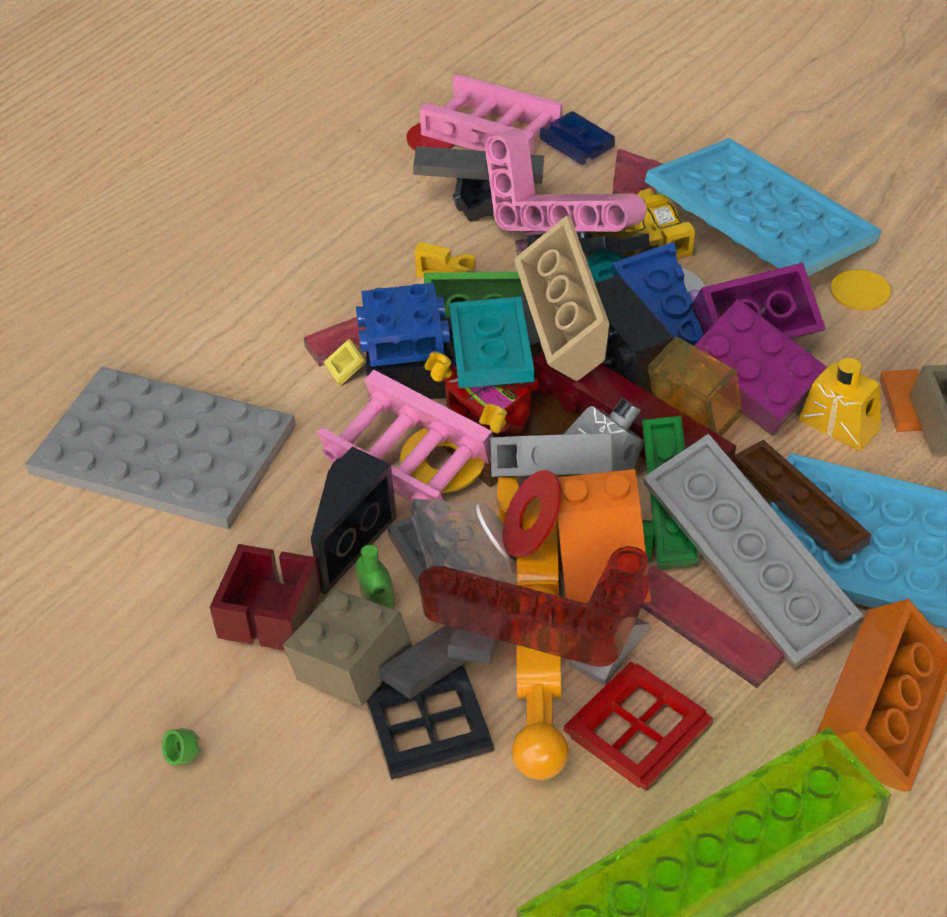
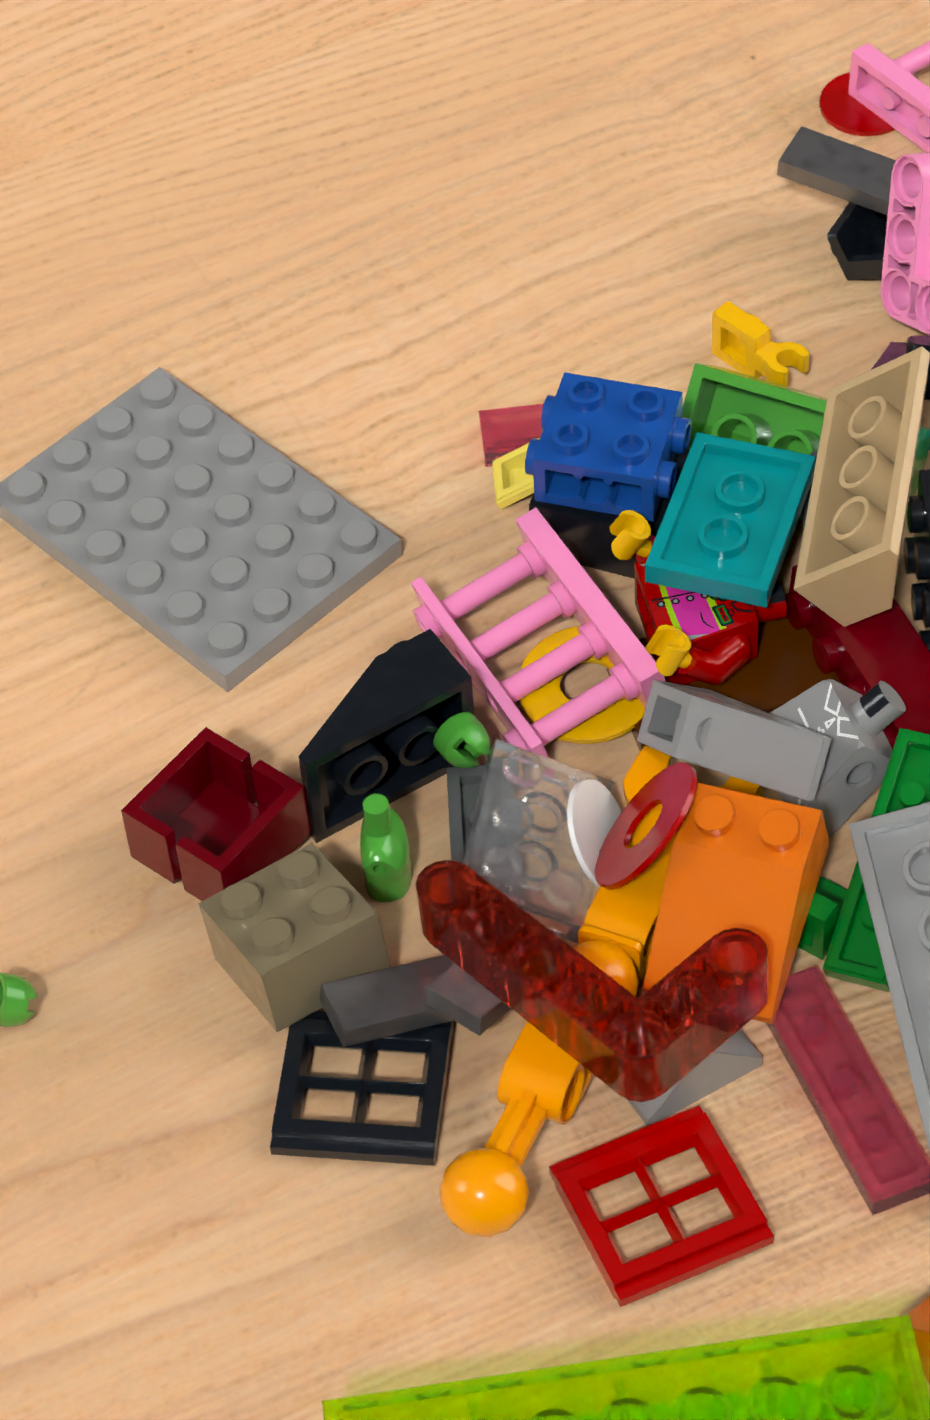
camera: 25 degrees right, 5 degrees up
(392, 506) = (462, 740): none -> bright green hinge

